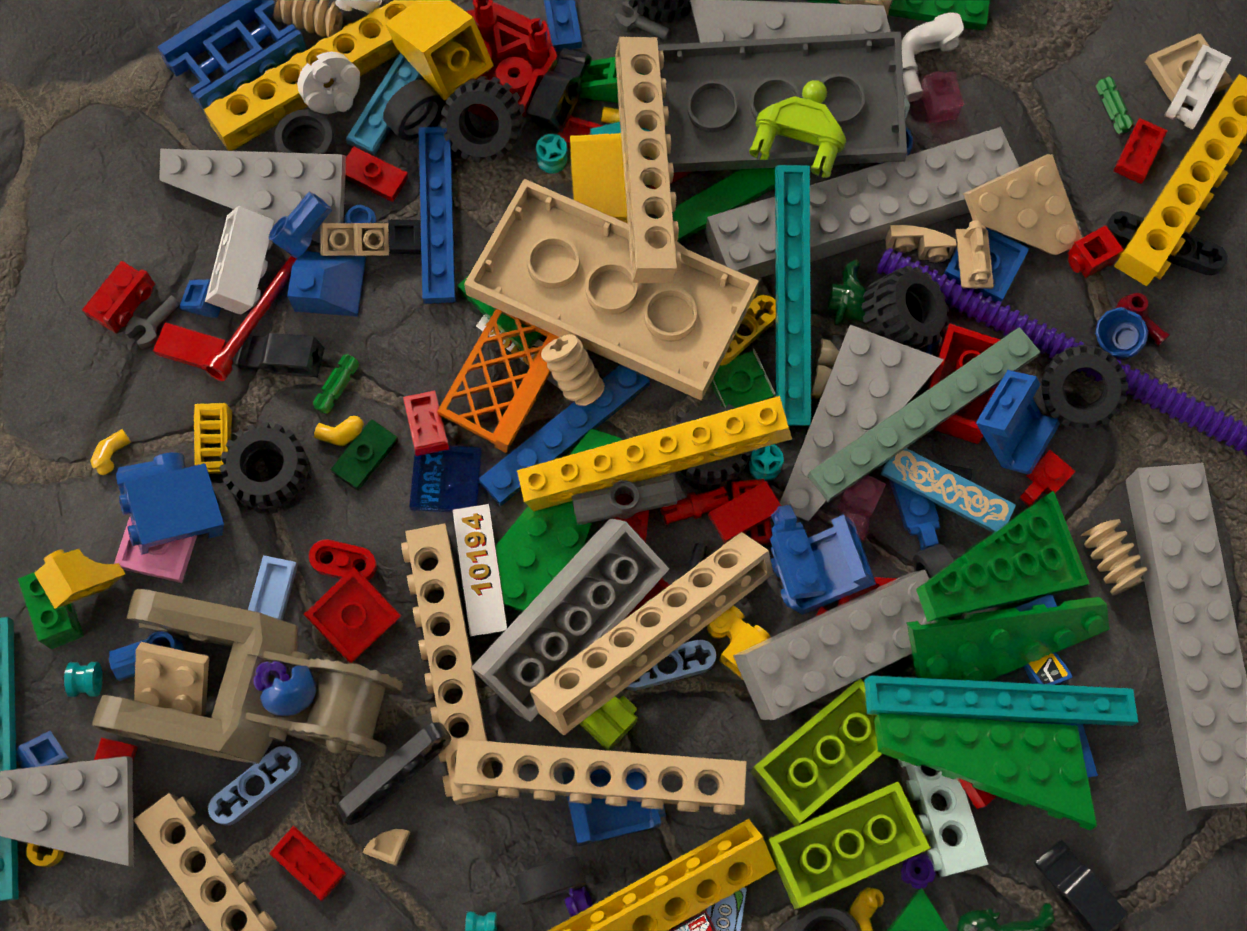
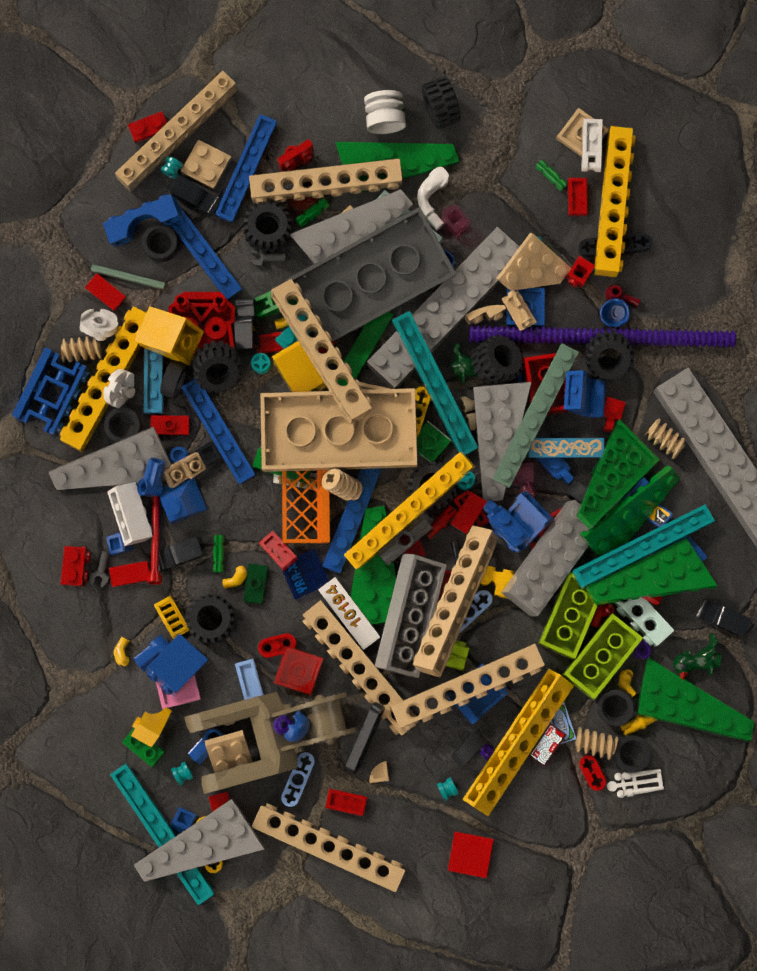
camera: 25 degrees left, 10 degrees up
(804, 121) = (393, 285): lime connector -> none
(877, 774) = (601, 611): none -> red arm

